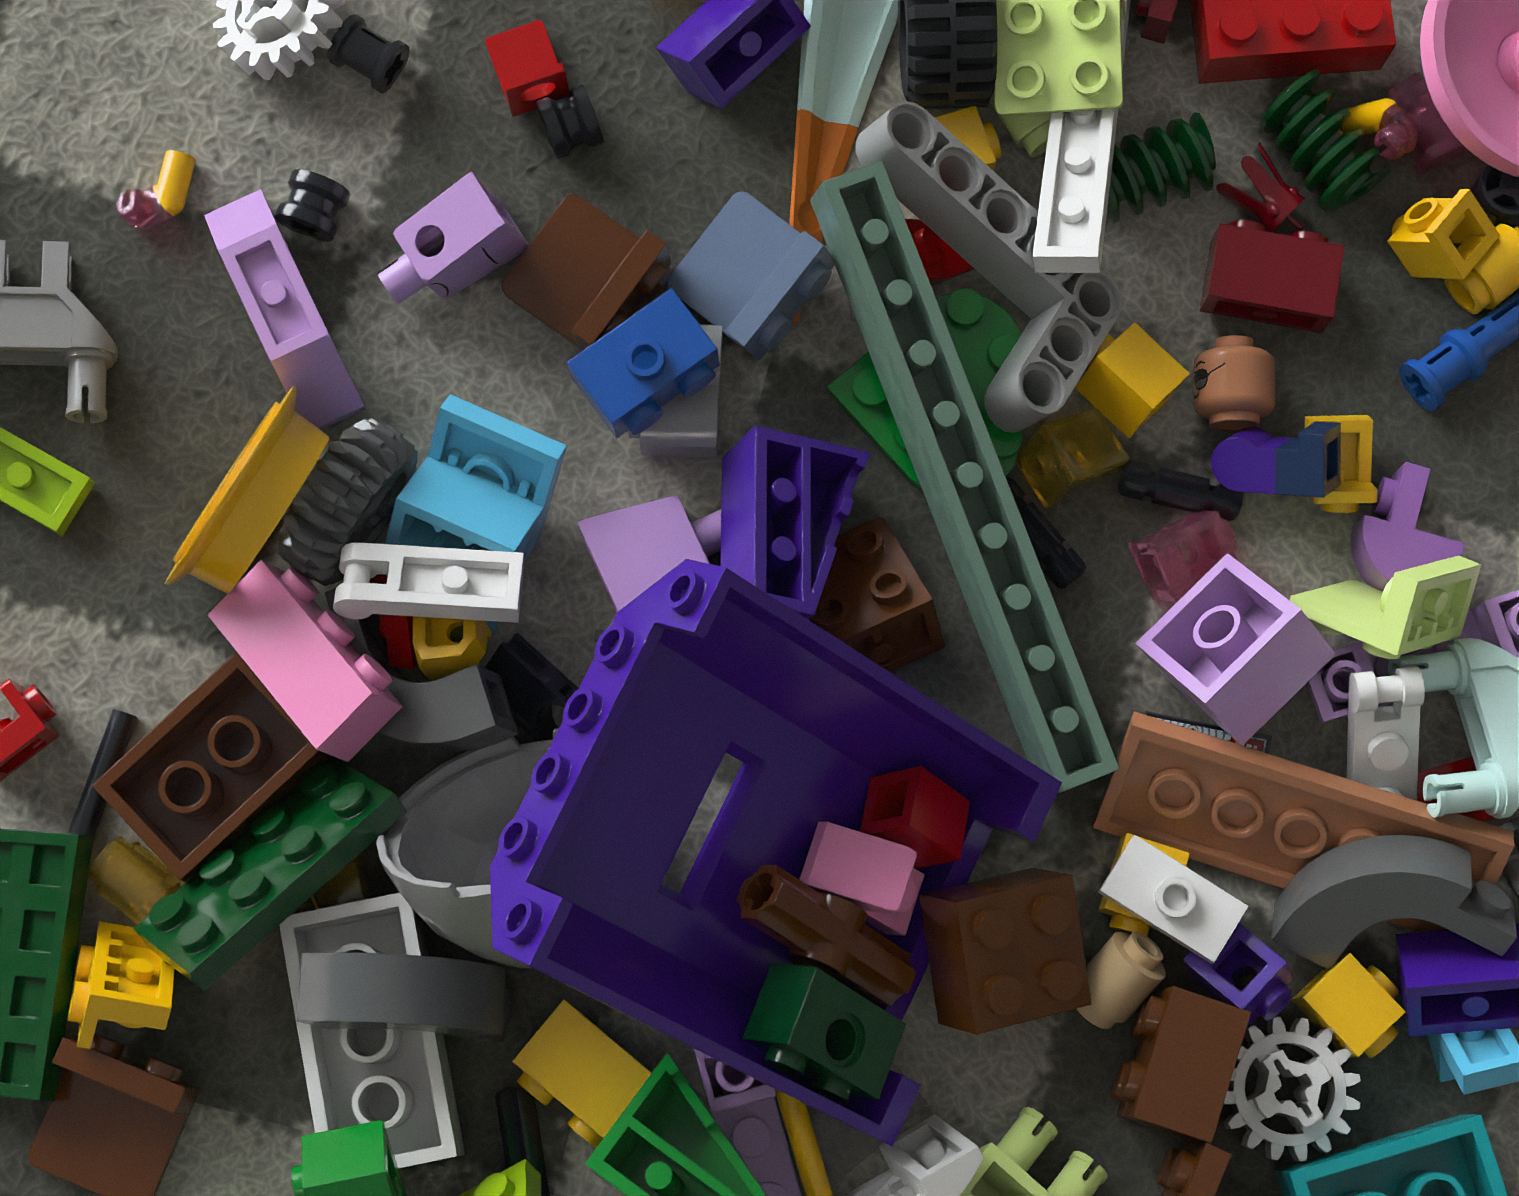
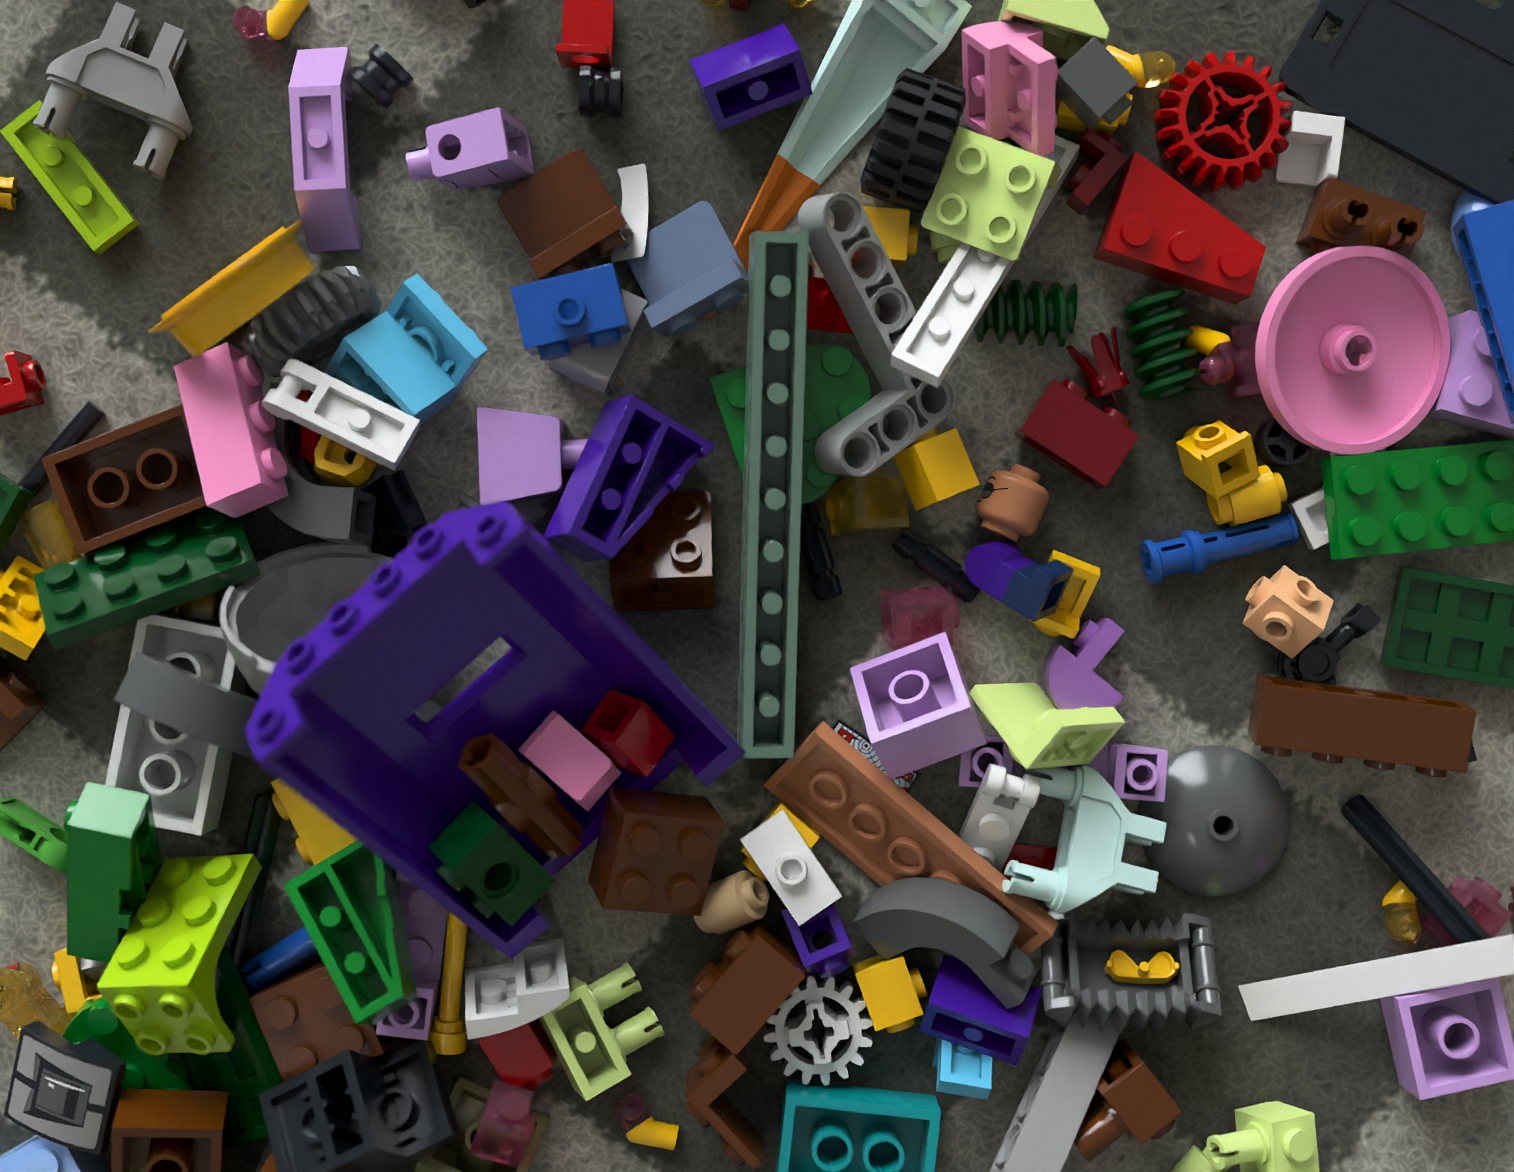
camera: 25 degrees right, 10 degrees up
(653, 214) = (635, 210): none -> white sticker

